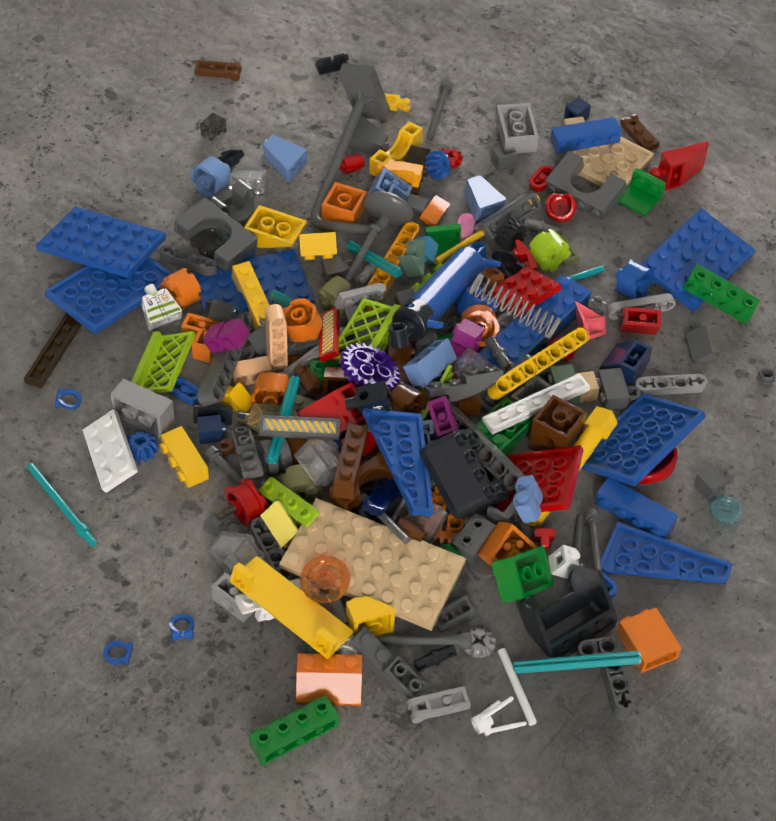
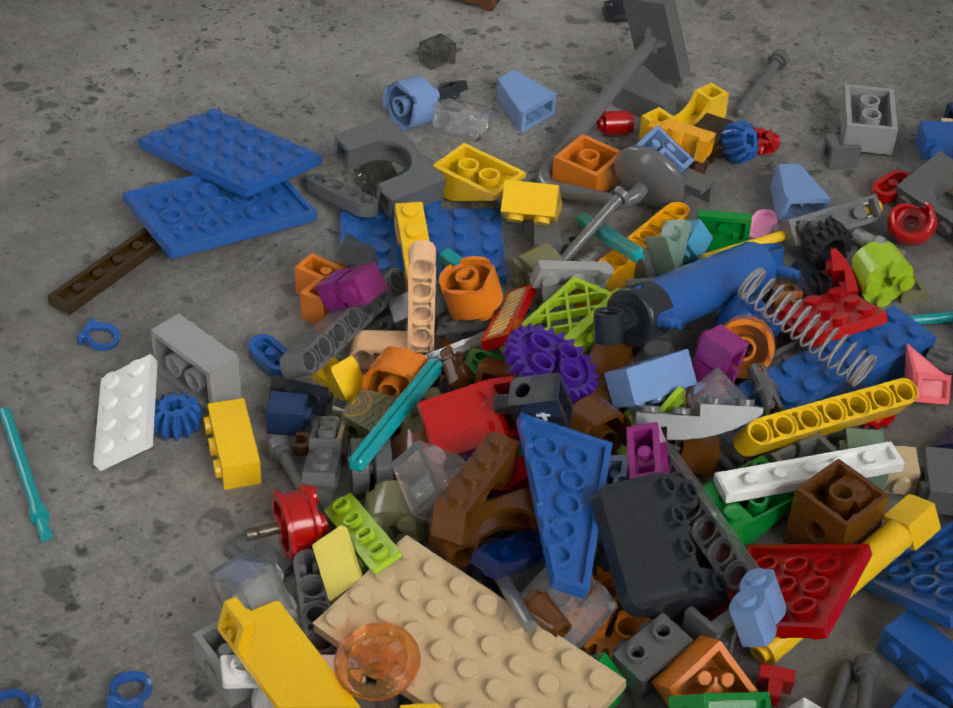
camera: 15 degrees right, 10 degrees down
(153, 359) = (251, 308): lime fence -> none
(159, 307) = (276, 243): white torso -> none
(182, 287) = (315, 225): orange brick -> none
(241, 196) = (443, 133): dark grey piece -> none
(299, 427) = (413, 424): tile -> none
(395, 102) = (701, 64): yellow plate -> none
(434, 211) = (720, 196): orange slope -> none

